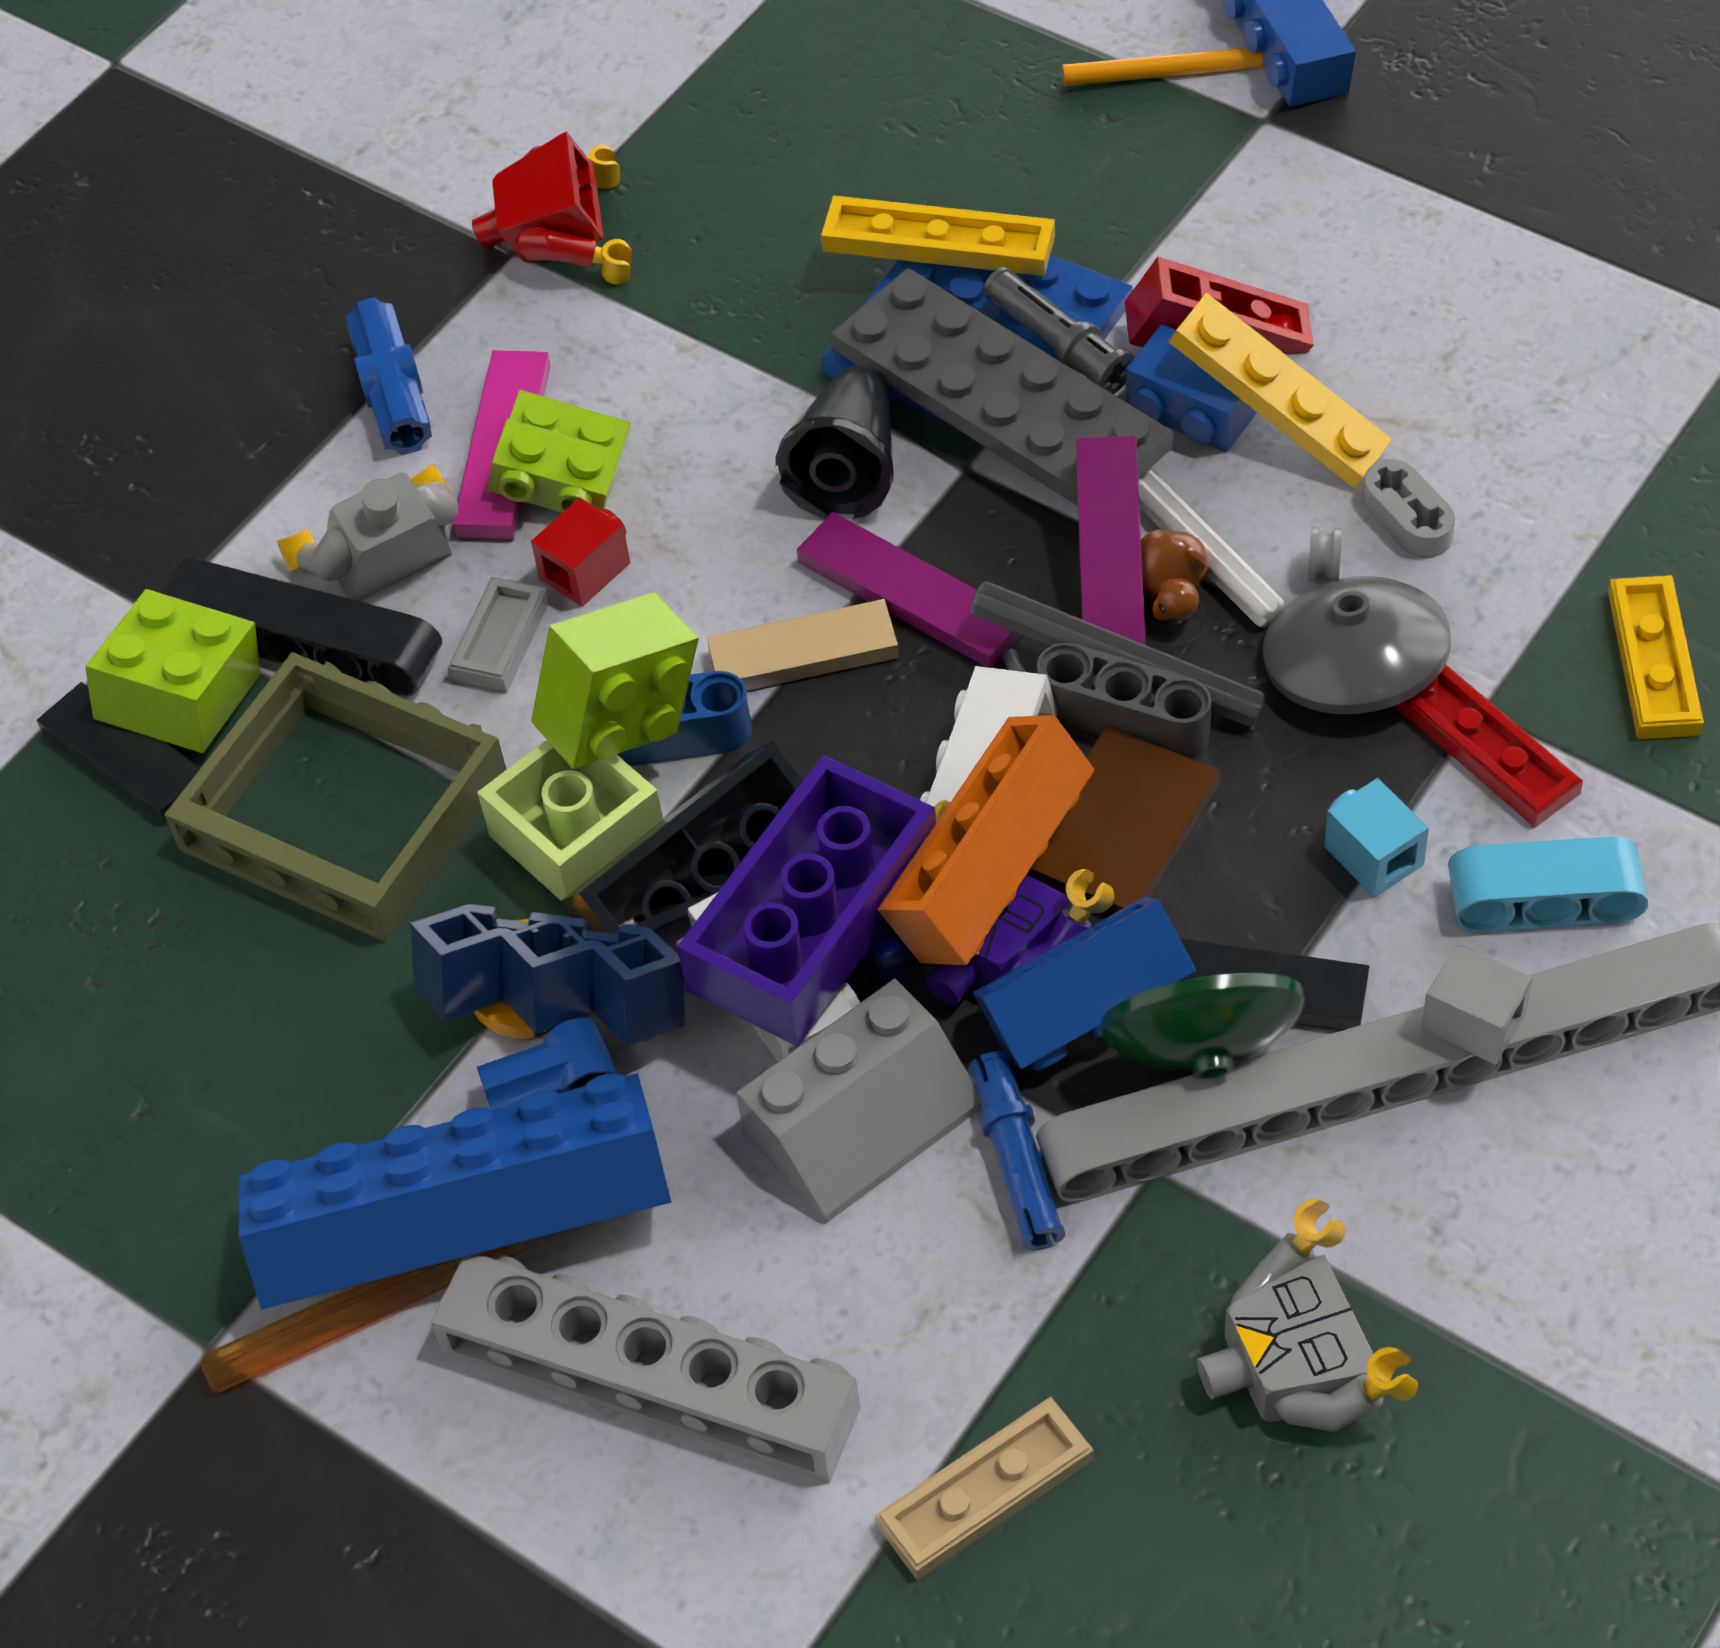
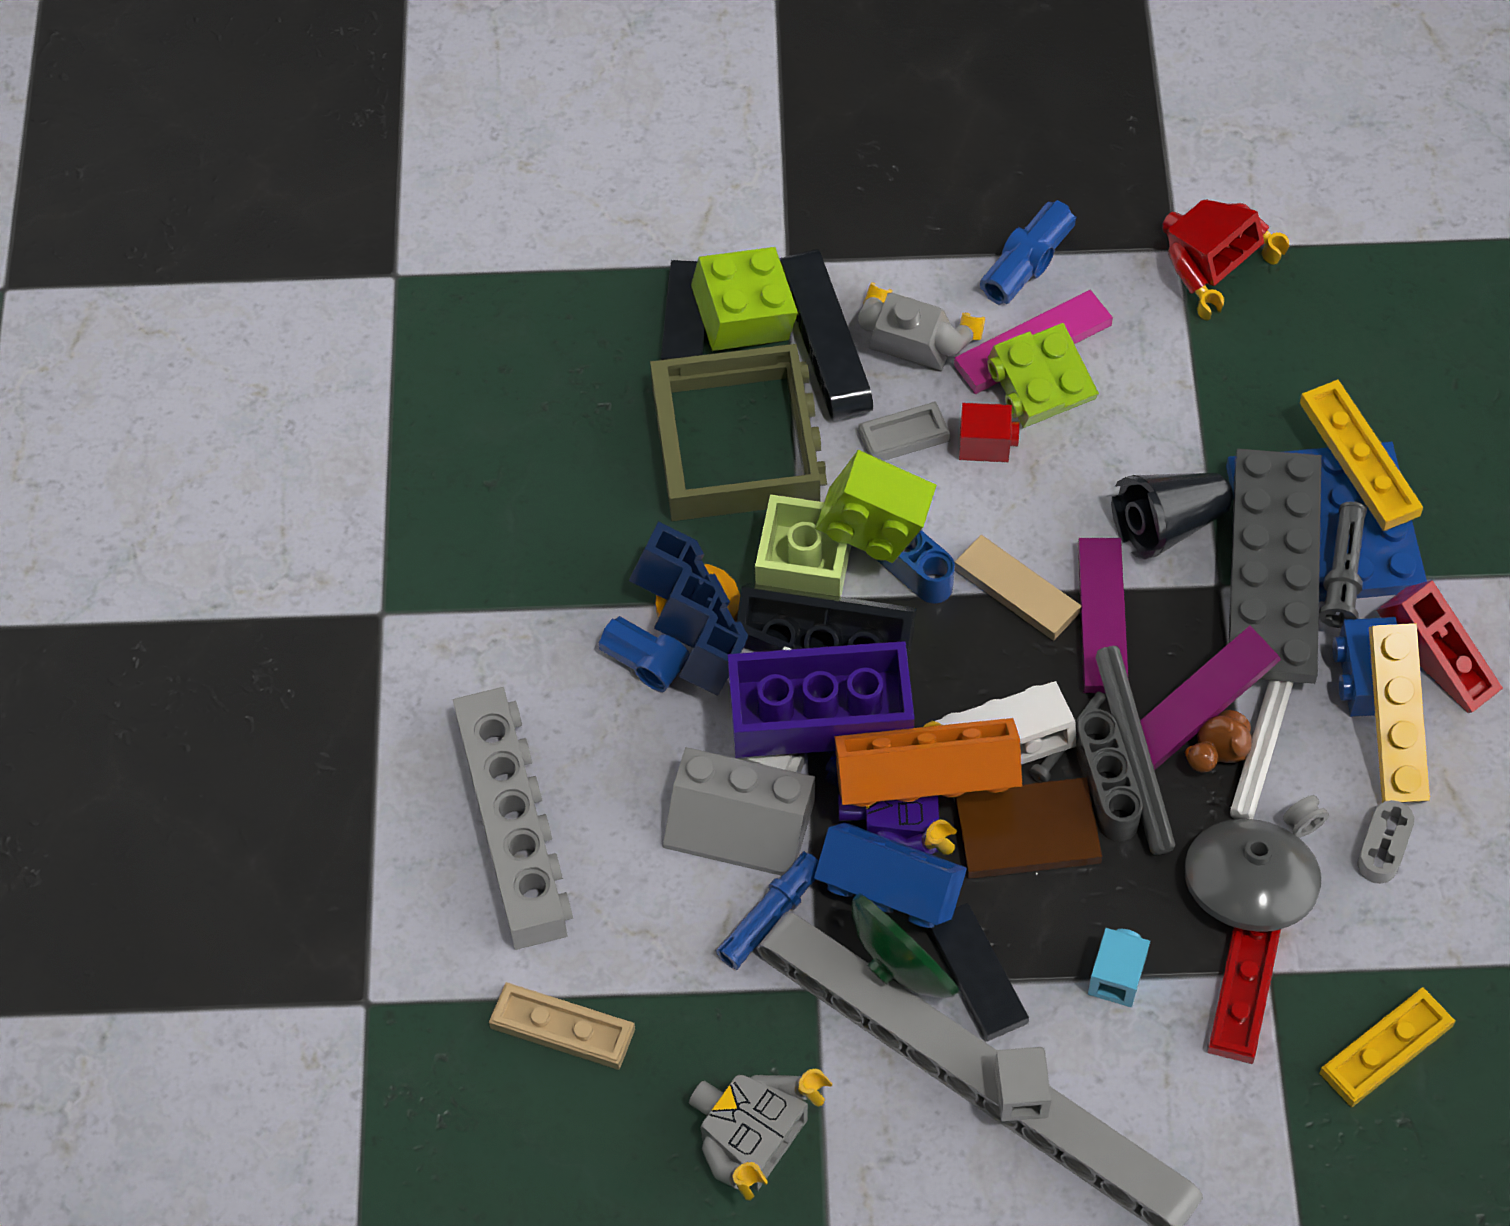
camera: 50 degrees right, 5 degrees up
(328, 1321) = (453, 662): clear orange axle -> none
(449, 1189) = (533, 656): blue brick -> none
(1547, 884) = (1160, 1080): medium azure beam -> none

